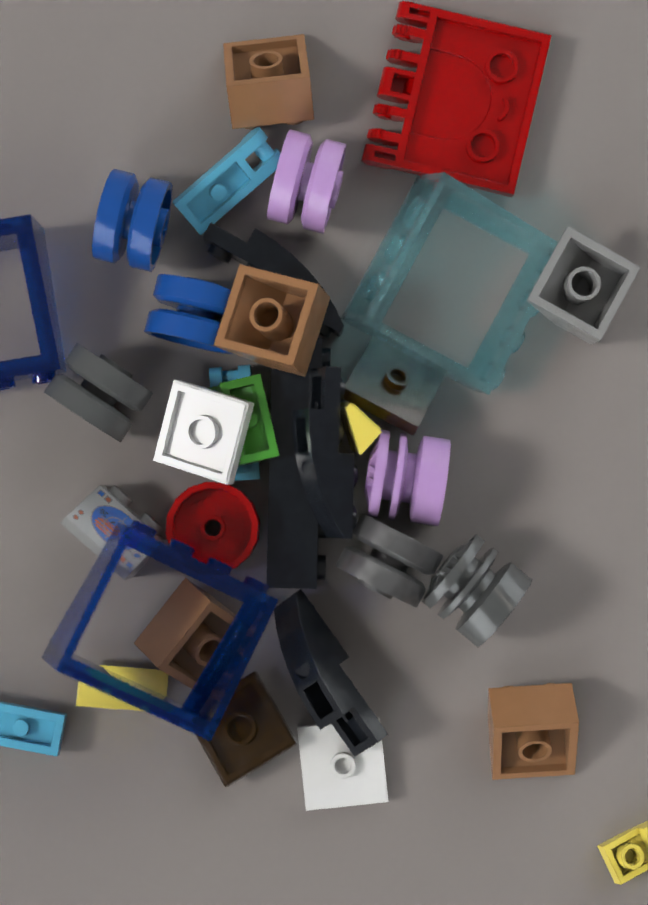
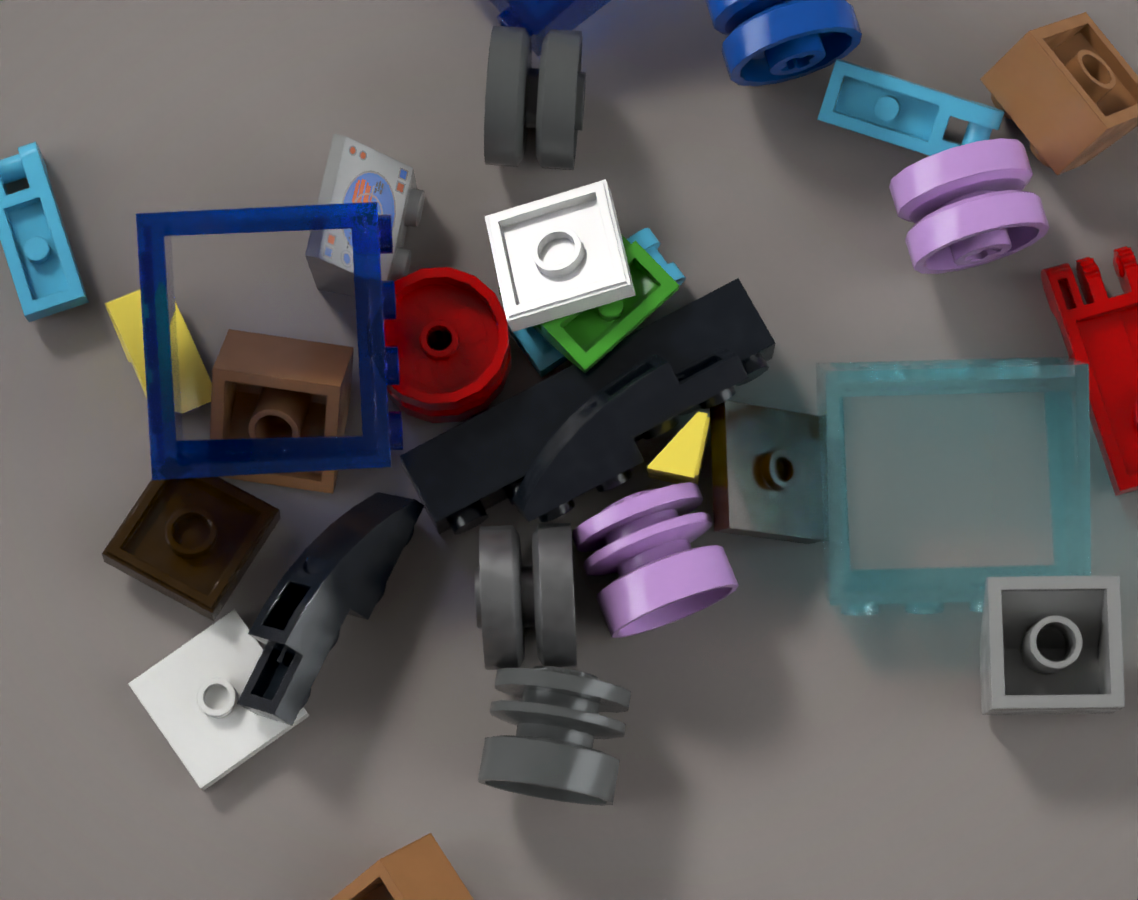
camera: 60 degrees right, 10 degrees down
(197, 307) = (718, 161): blue wheel -> none
(267, 255) = (821, 266): black slope -> none
(273, 319) = (759, 258): medium nougat slope -> none

